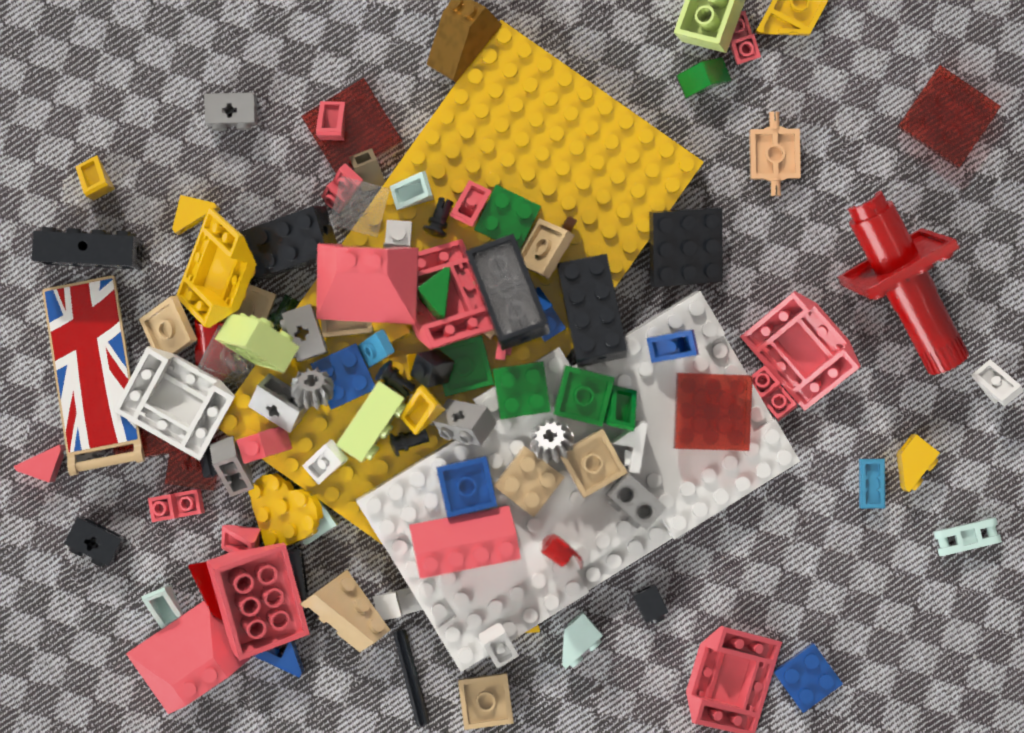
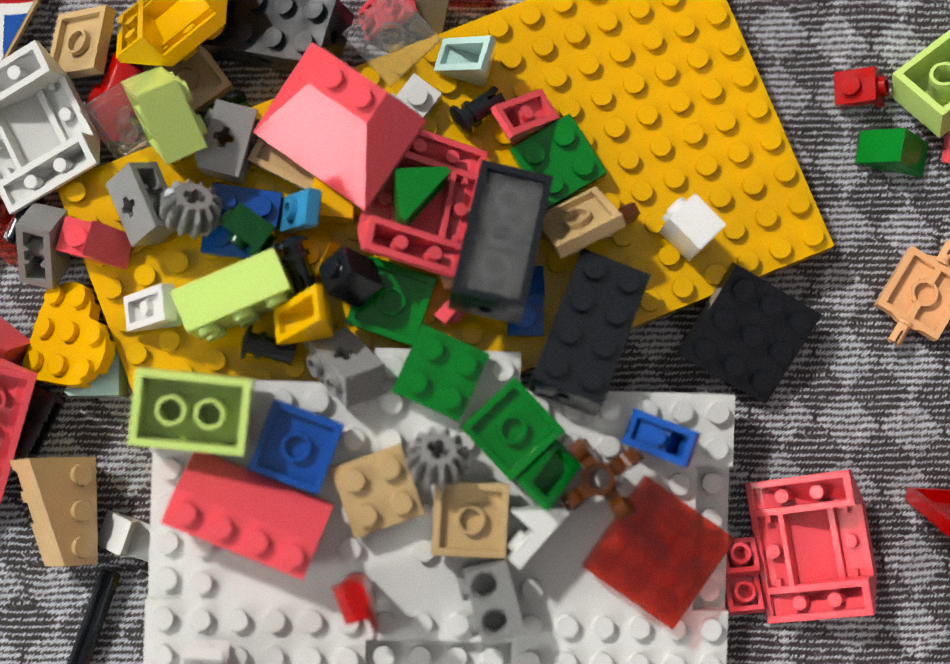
camera: 30 degrees right, 5 degrees down
(353, 379) = (248, 229): none -> dark green brick
(395, 504) = (191, 411): none -> yellowish green brick
(611, 209) = (690, 226): none -> white brick
(660, 49) = (860, 87): none -> red bracket
(671, 398) = (587, 457): none -> reddish brown pin

